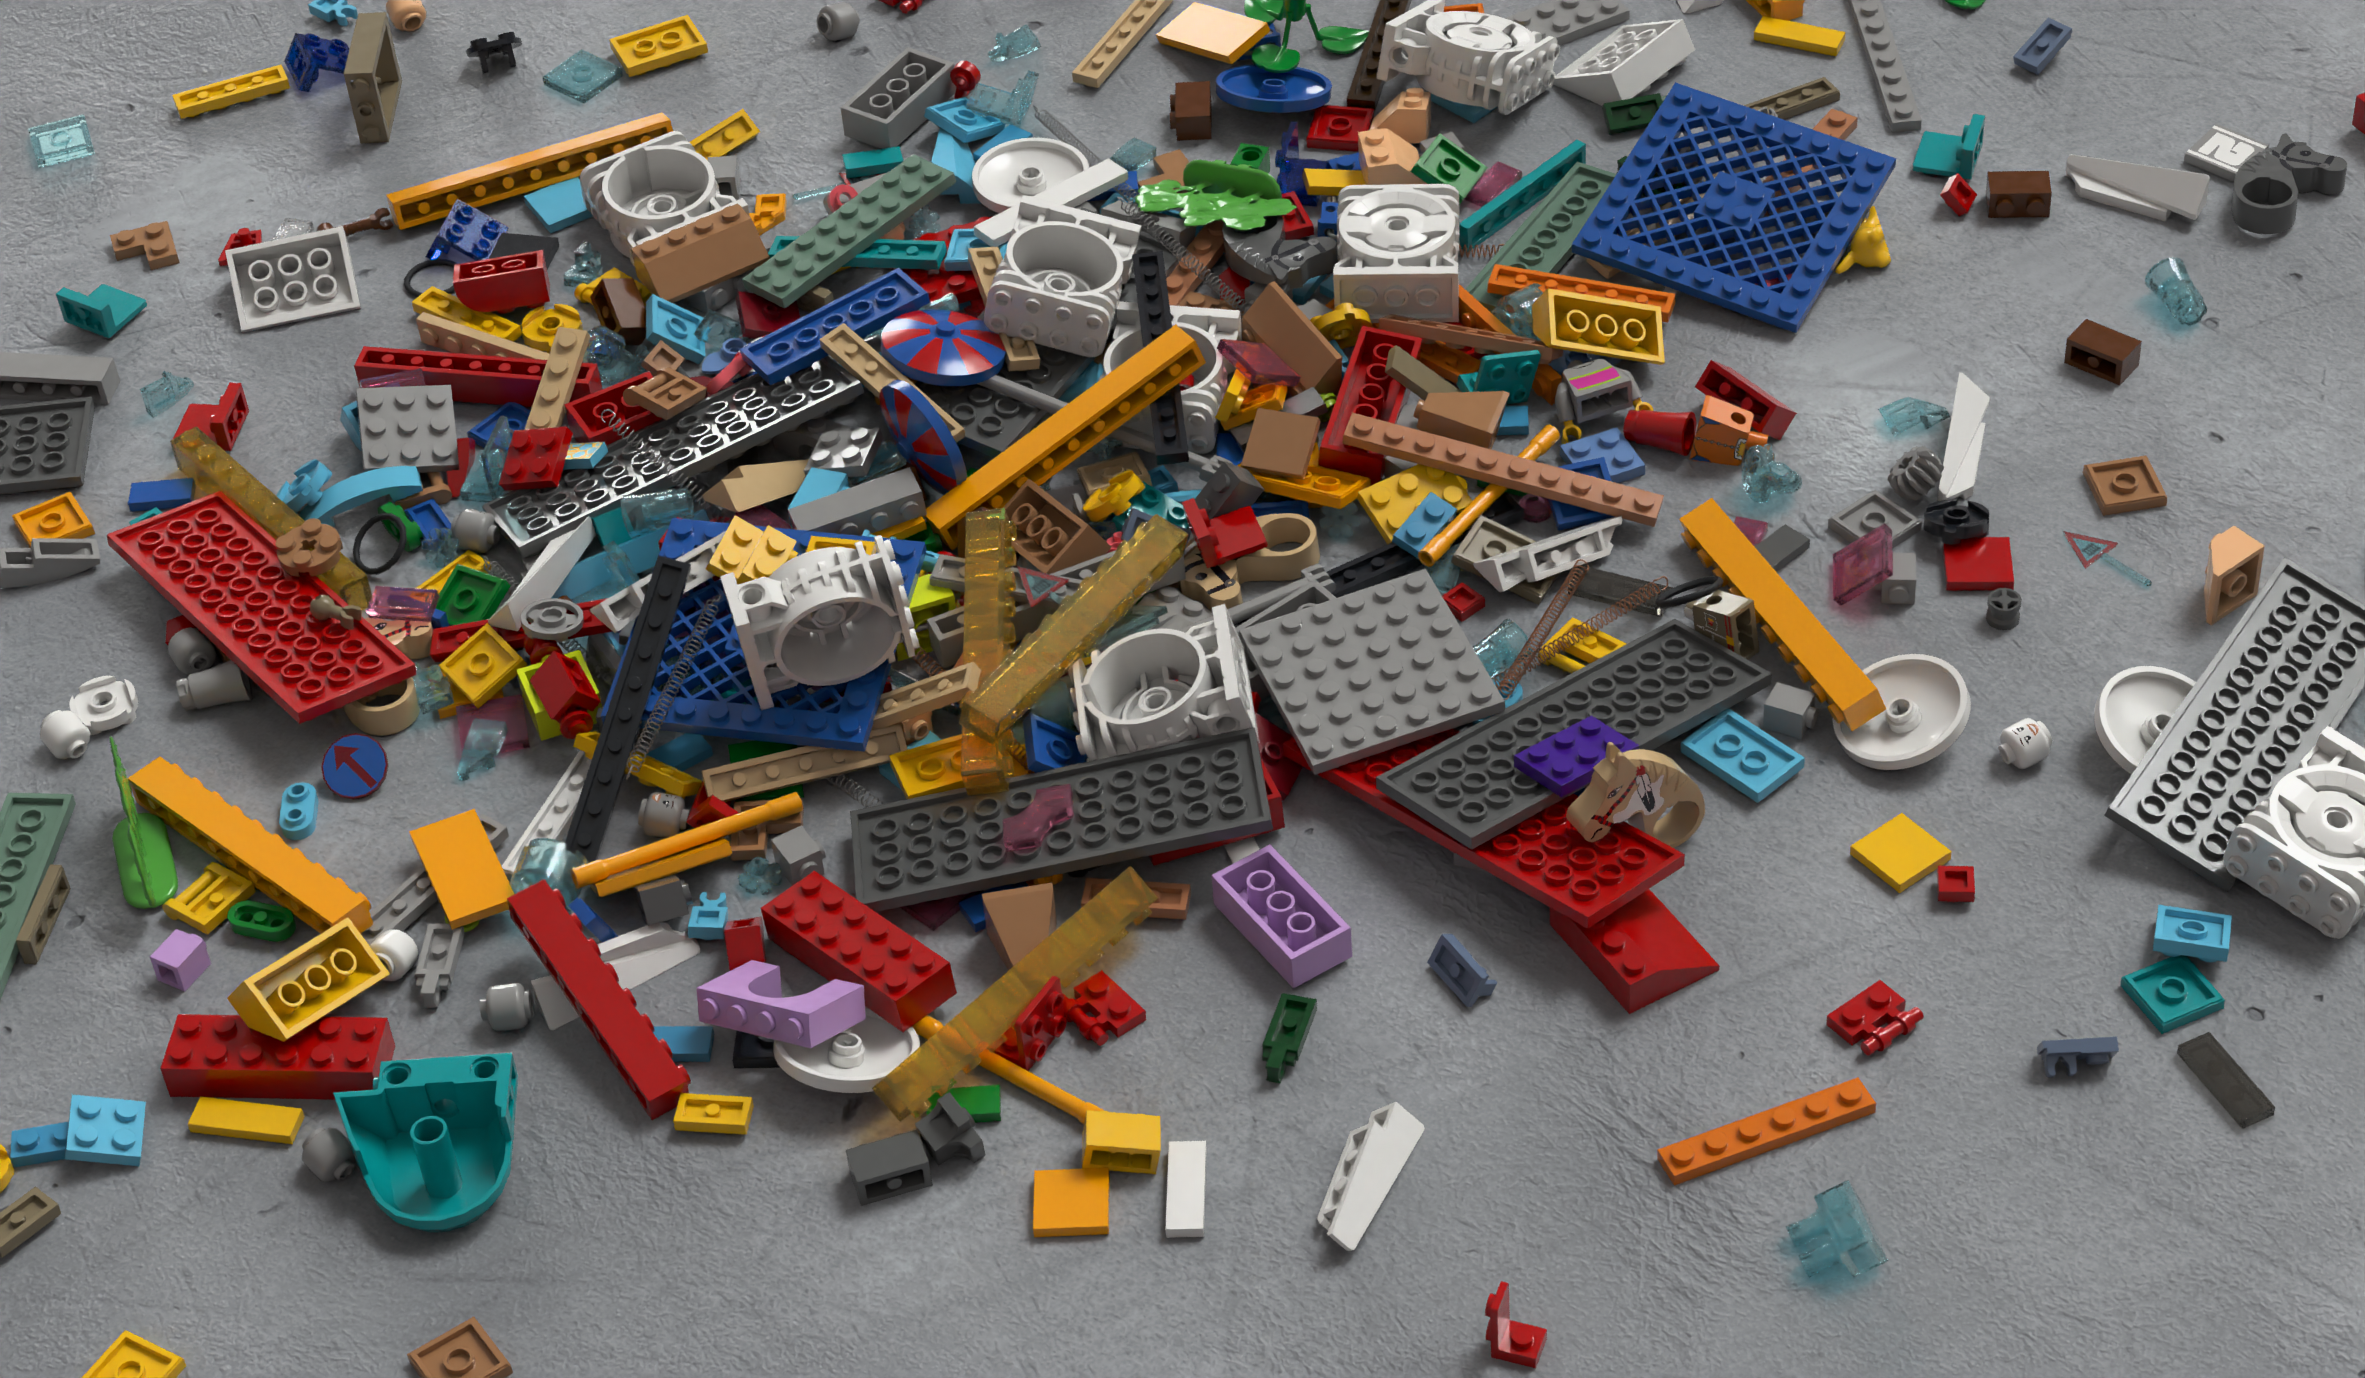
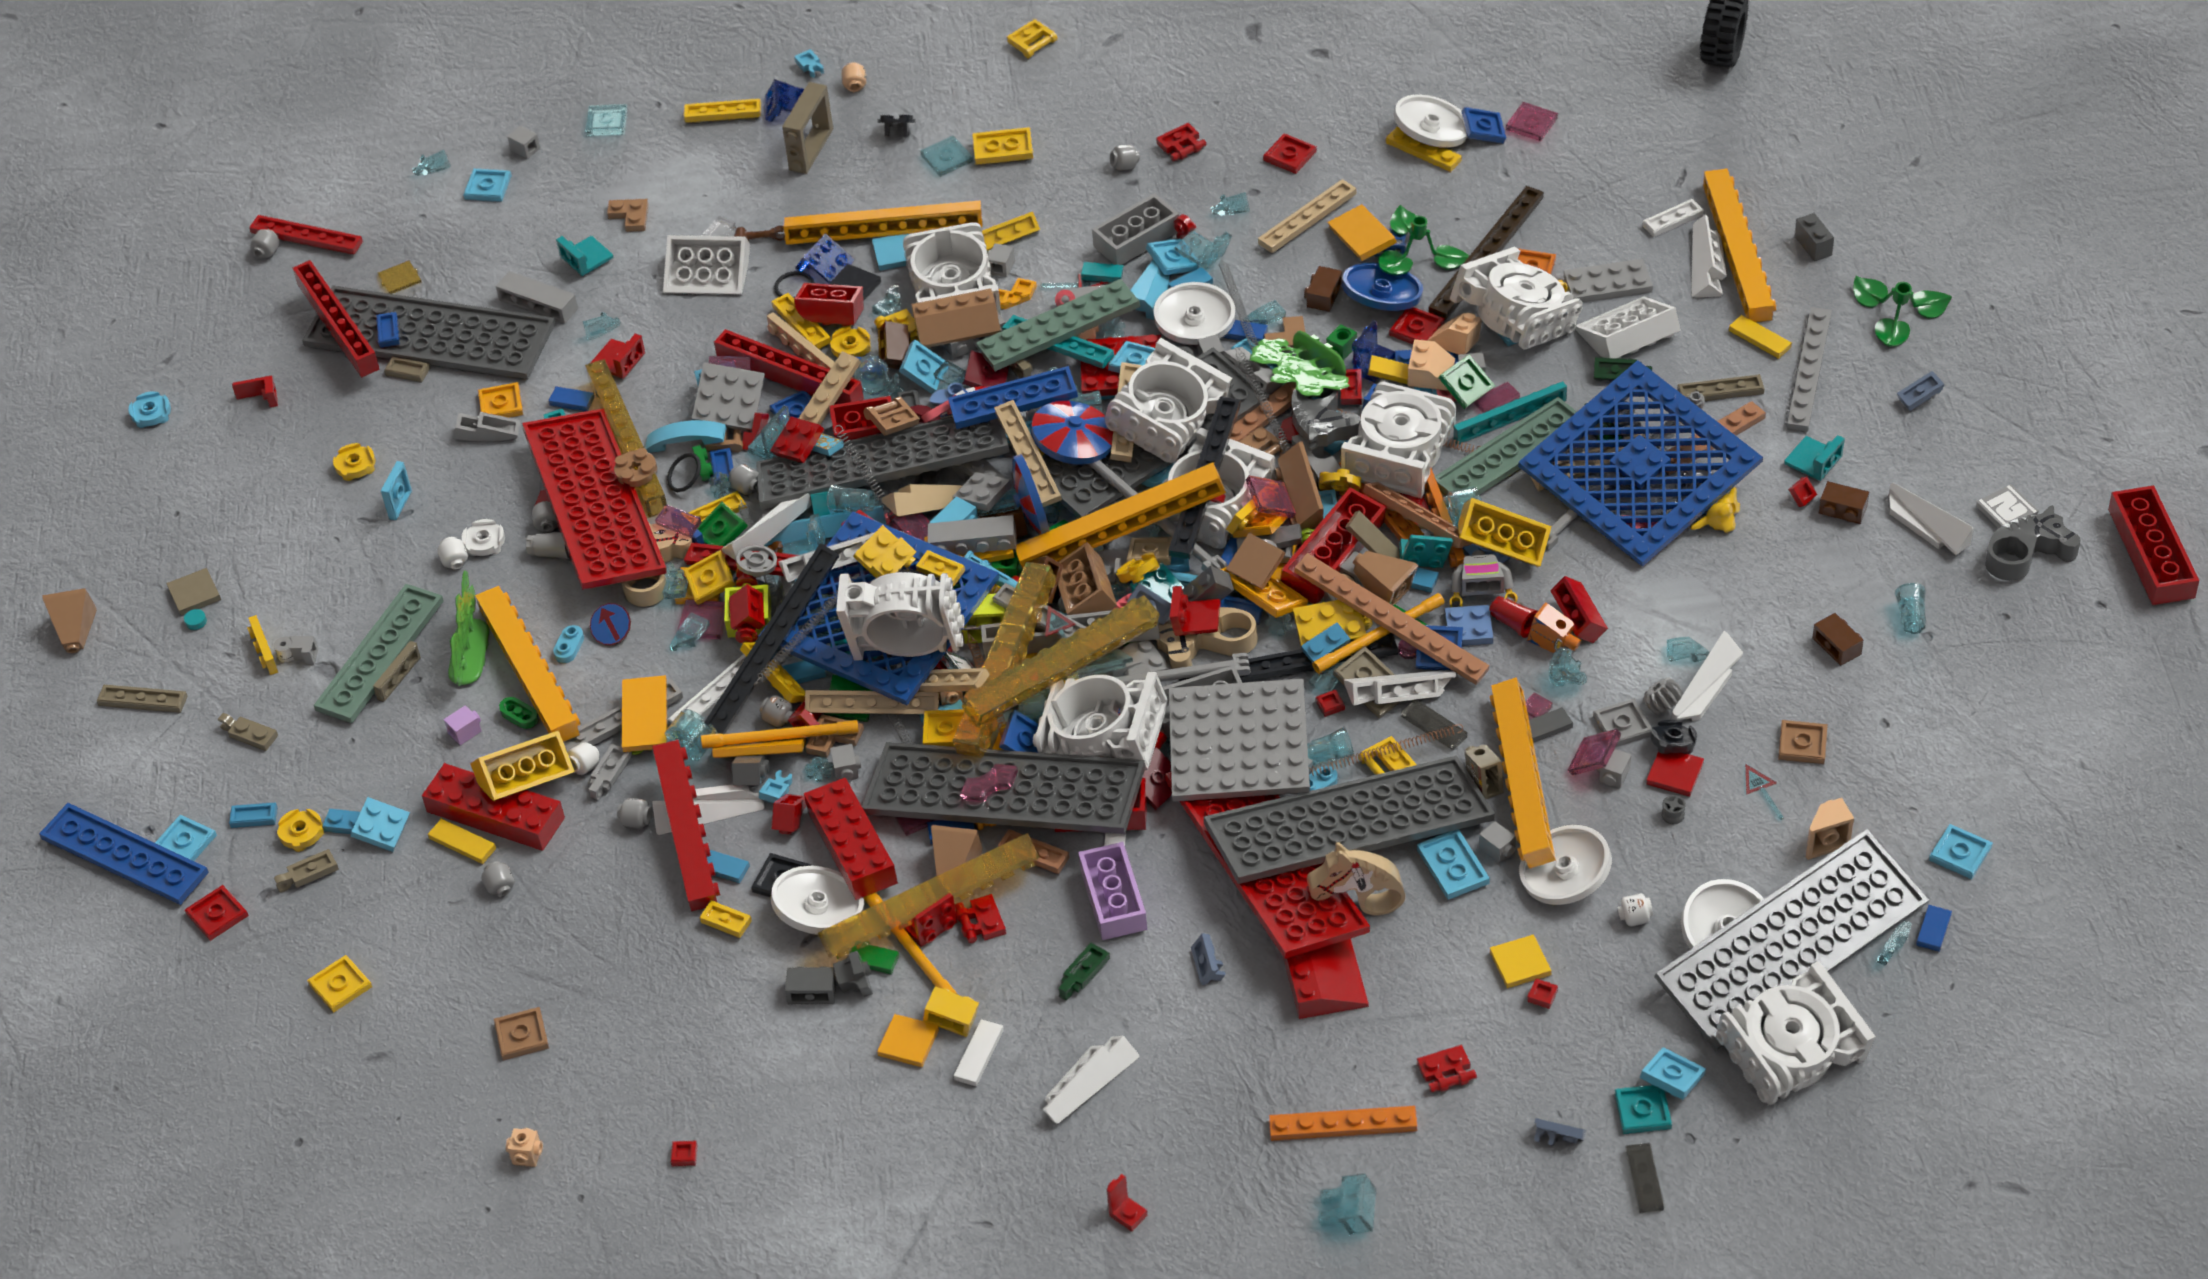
camera: 20 degrees right, 5 degrees up
(209, 898) = (495, 688): yellow plate -> none
(242, 238) = (687, 227): red piece -> none
(306, 485) = (652, 421): medium azure plate -> none
(324, 608) = (627, 513): dark tan arm -> none
(435, 1137) = (557, 887): teal animal -> none
(592, 920) = (702, 773): blue tile -> none
(662, 357) = (905, 388): medium nougat plate -> none
(753, 1003) = (766, 853): lavender arch -> none
(1068, 193) = (1201, 336): white tile -> none
(1509, 279) = (1508, 498): orange plate -> none
(1538, 625) = (1363, 736): nougat piece -> none
(1568, 757) = (1320, 837): dark purple plate -> none
(1715, 581) = (1471, 745): black tyre -> none

